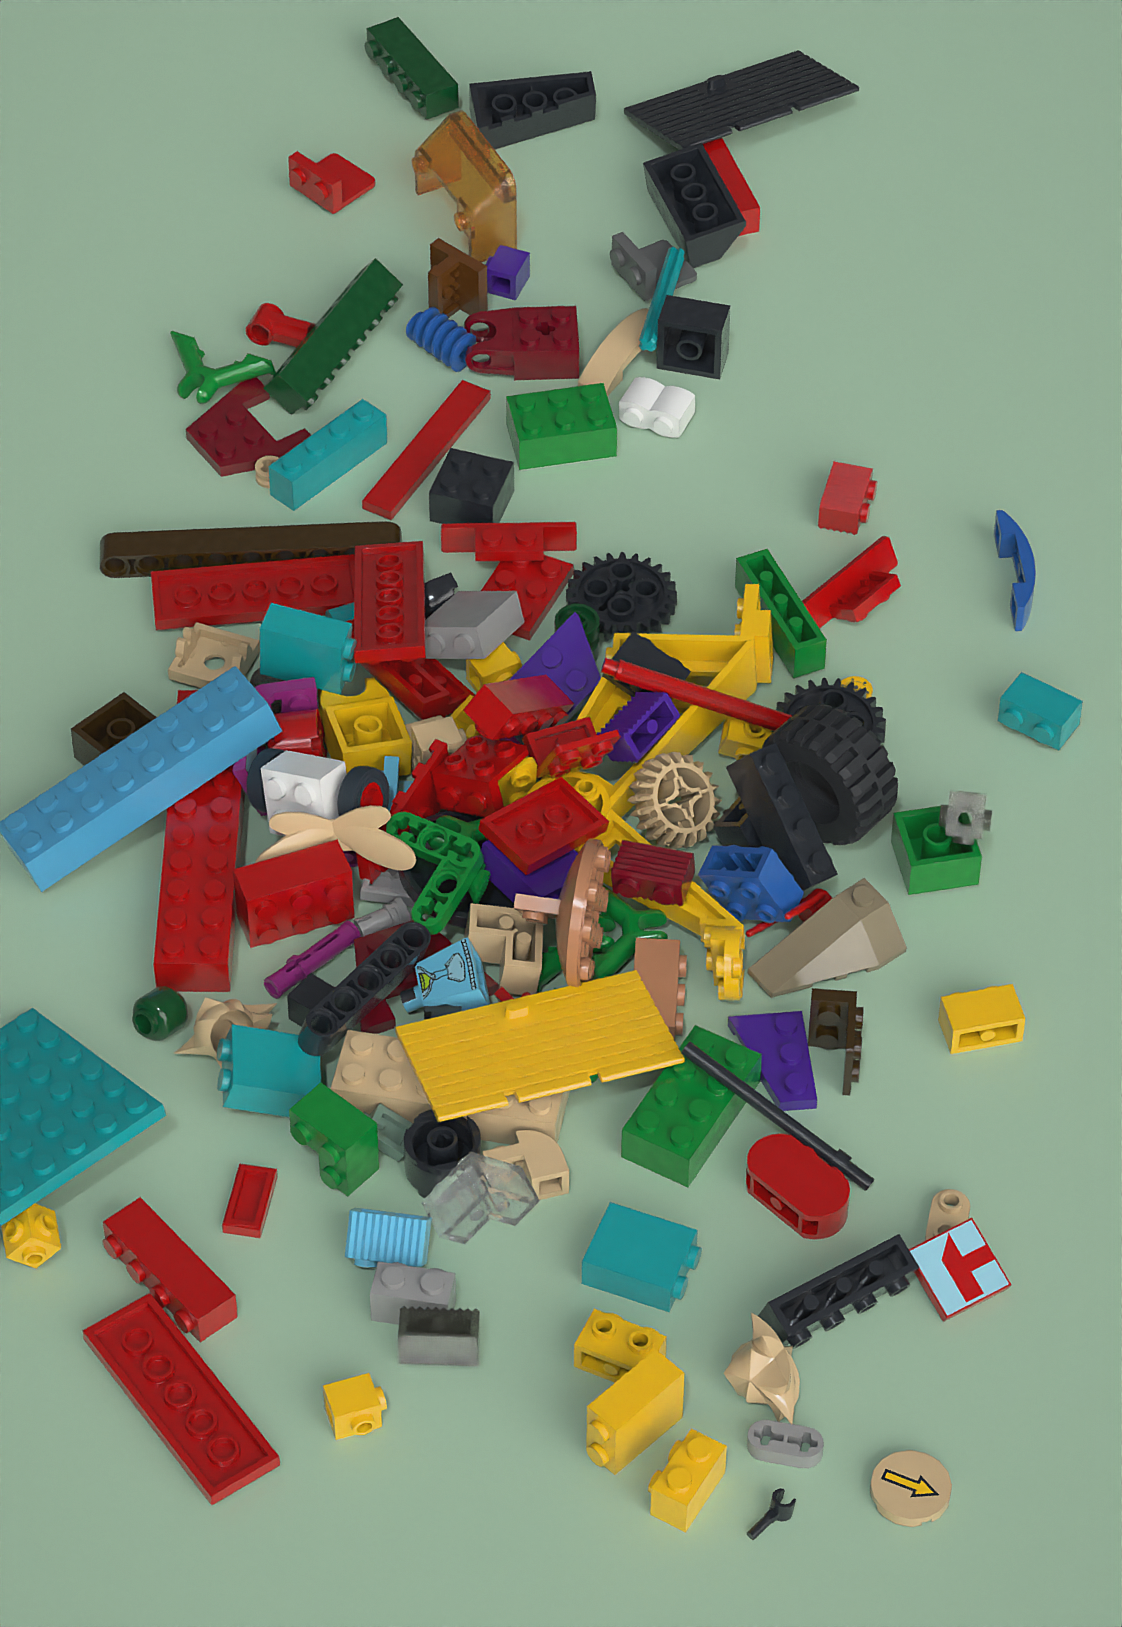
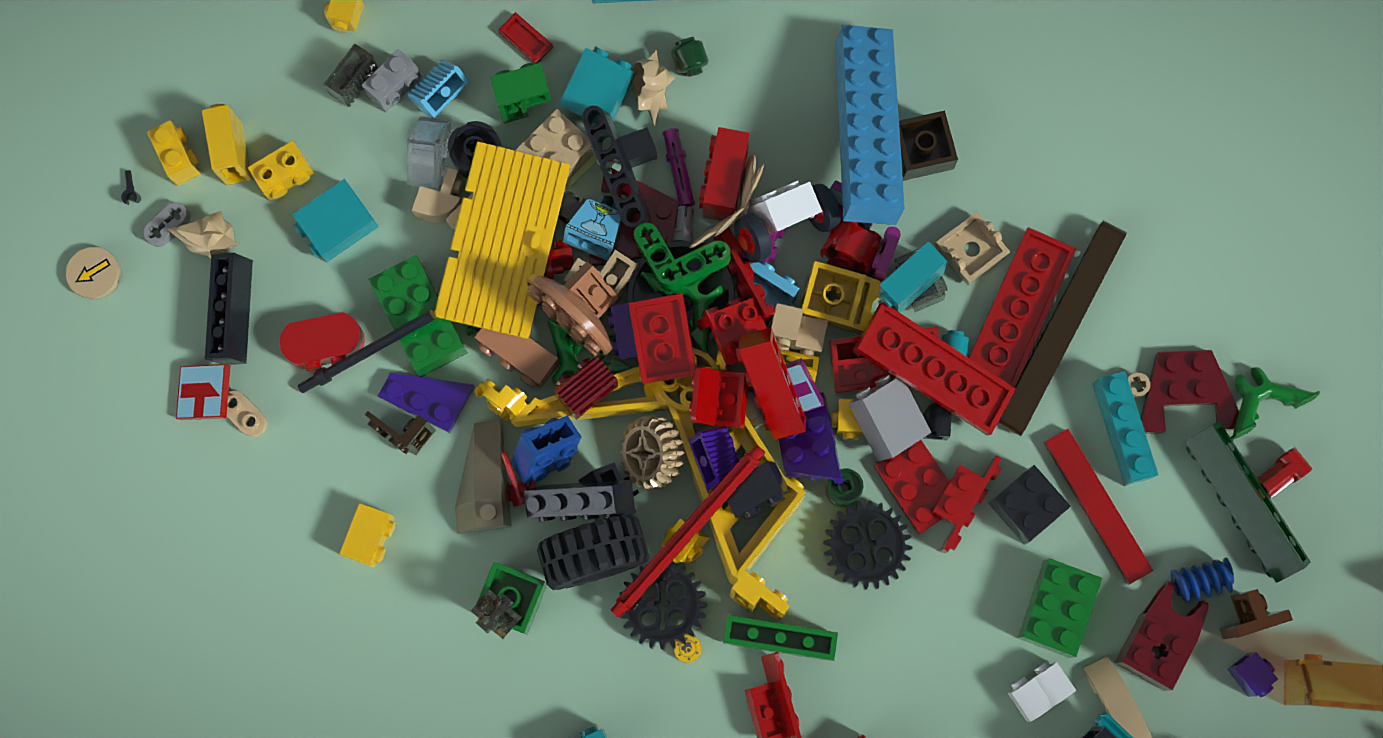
camera: 125 degrees right, 30 degrees up
(198, 886) = (795, 141): red brick -> none
(390, 1131) = (517, 131): sand green bracket -> none

